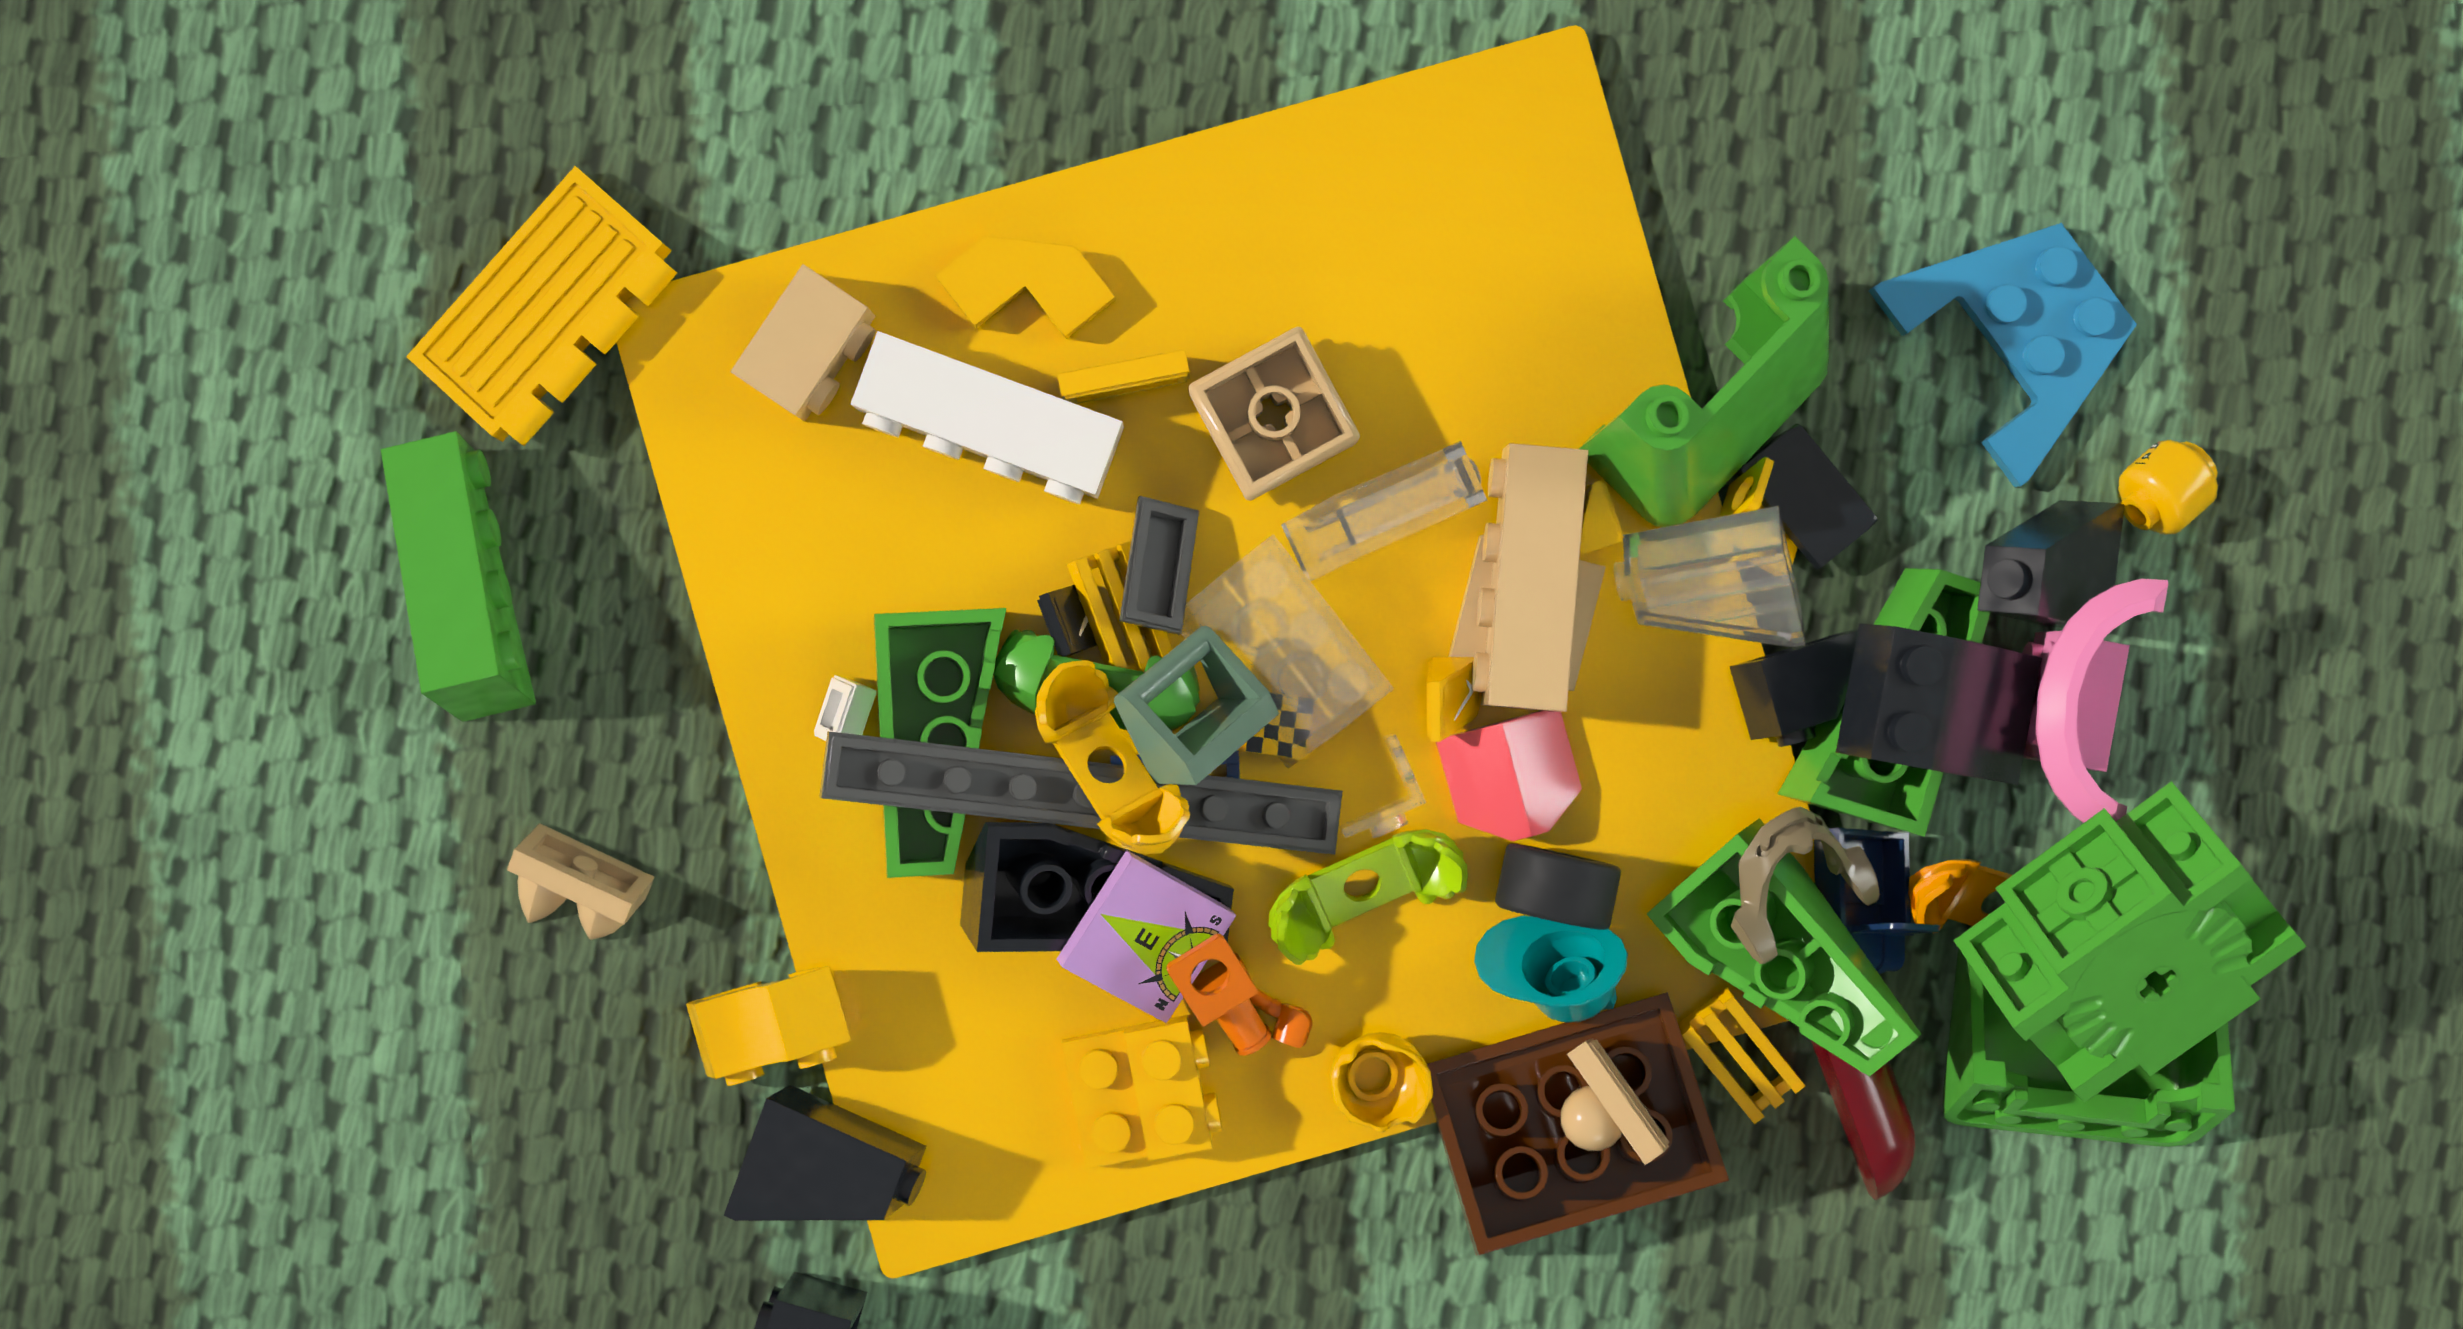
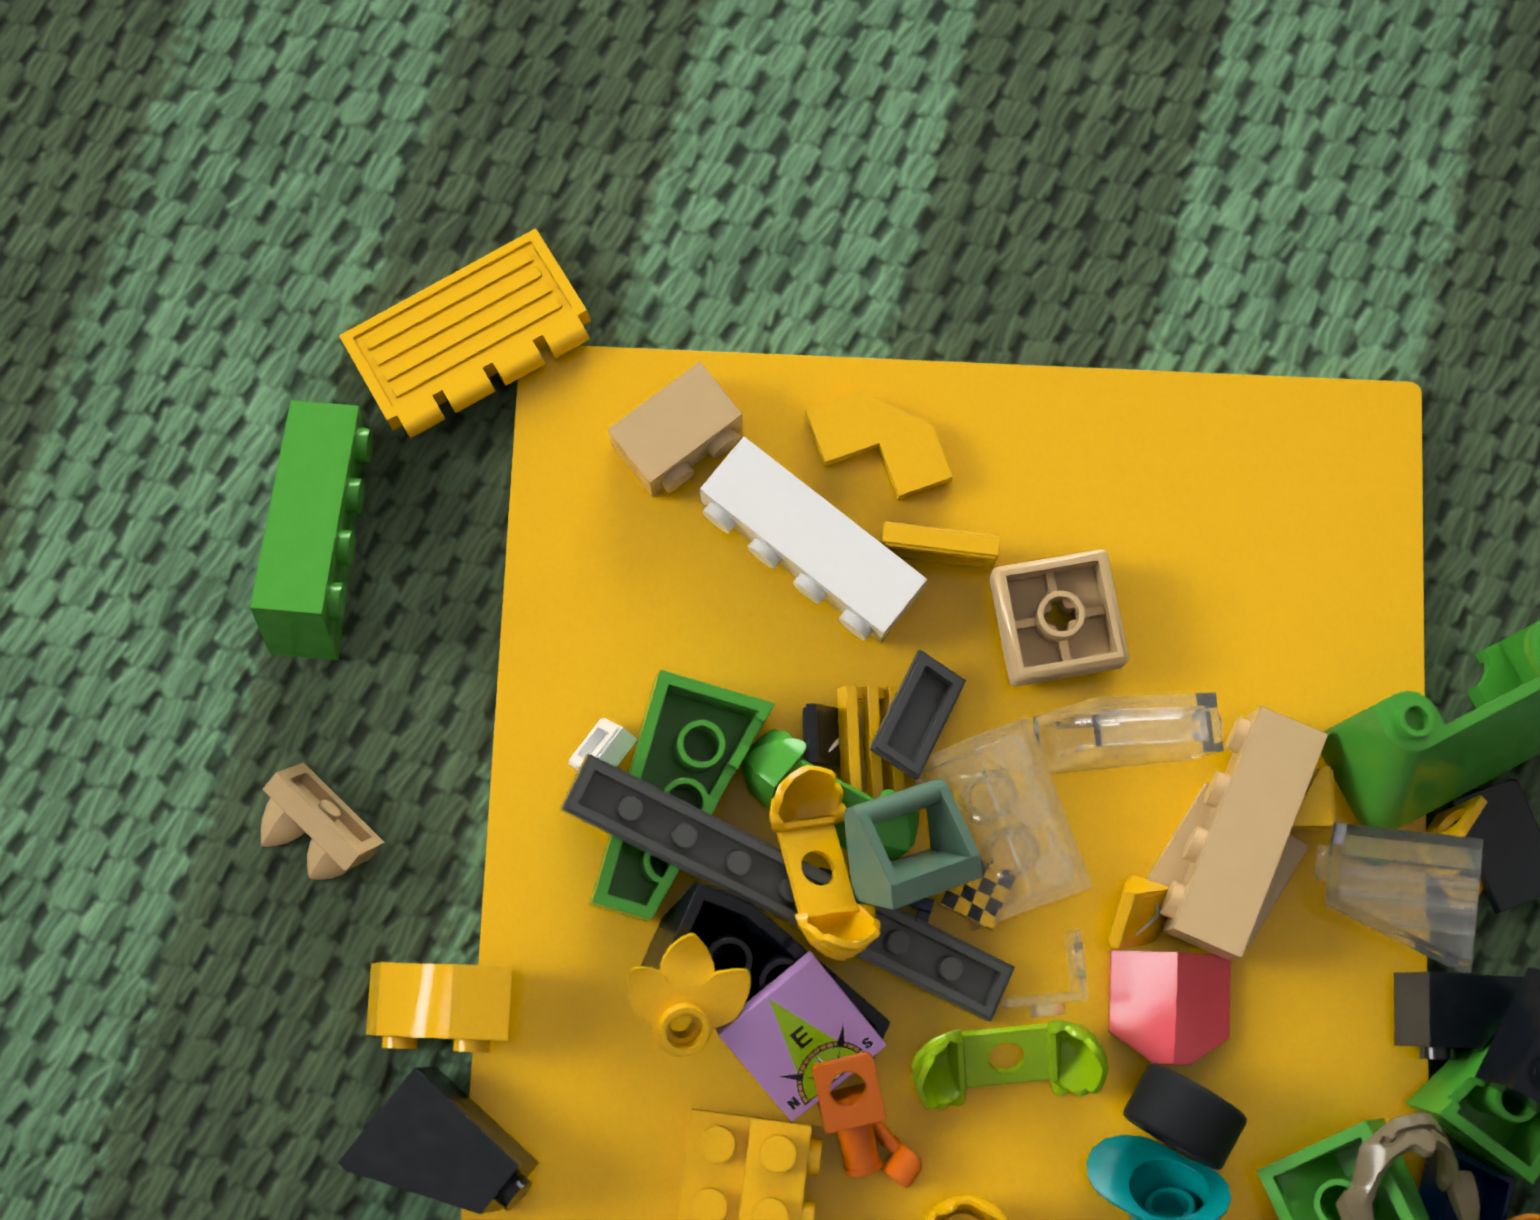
camera: 15 degrees right, 10 degrees down
(1014, 930) = (687, 987): none -> yellow plate

